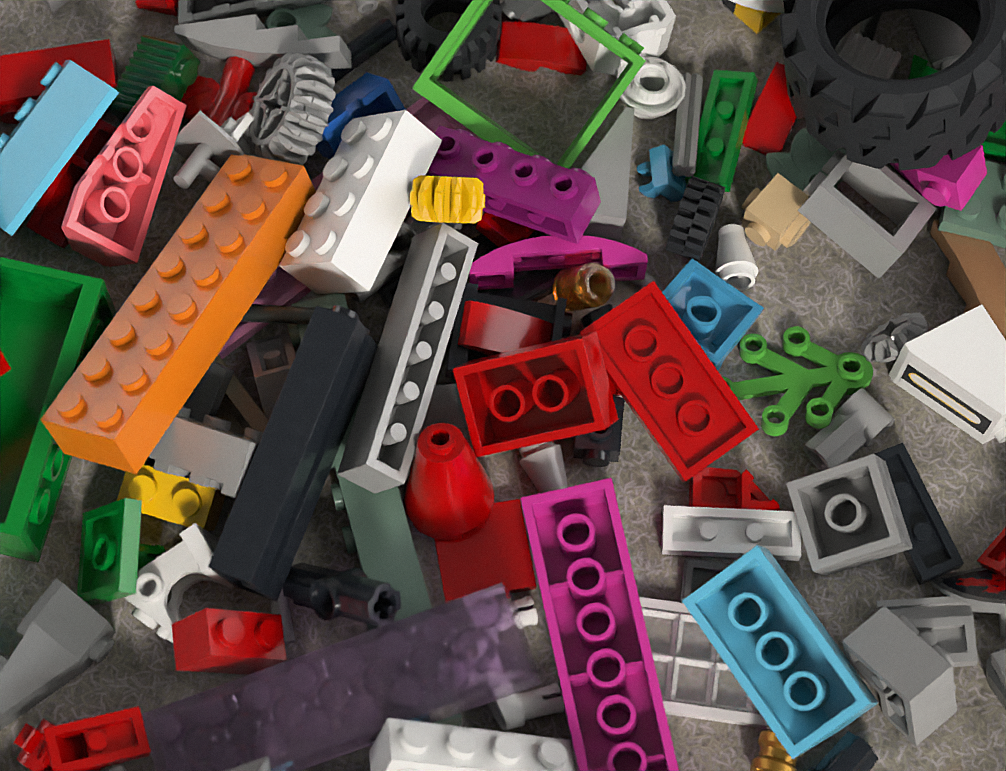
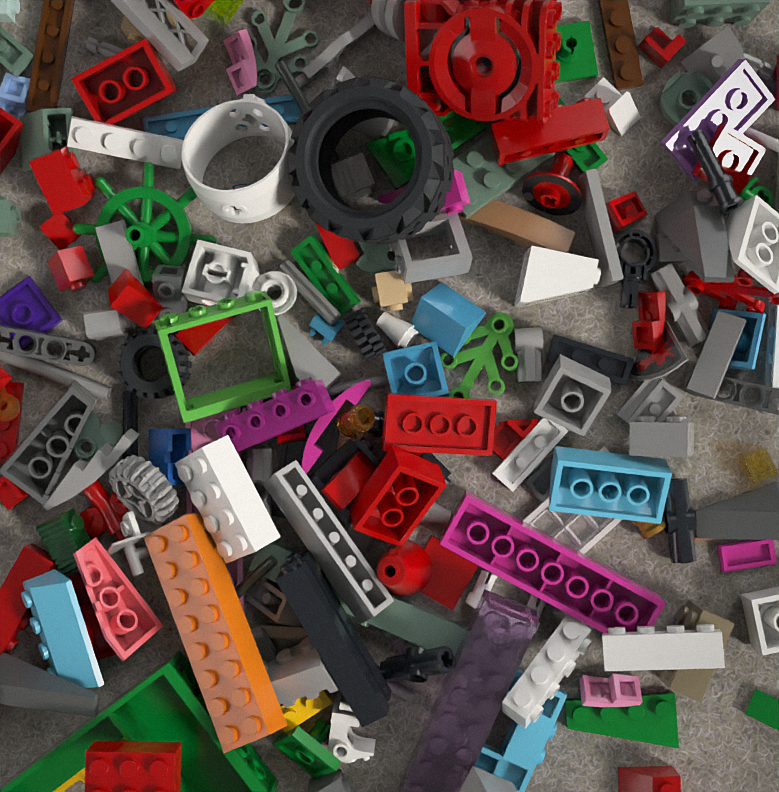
camera: 45 degrees left, 20 degrees up
(228, 641) = (396, 732): red brick -> none
(447, 199) = (265, 462): yellow gear -> none
(801, 300) = (446, 318): none -> dark azure slope
(888, 340) = (504, 284): light grey gear -> none

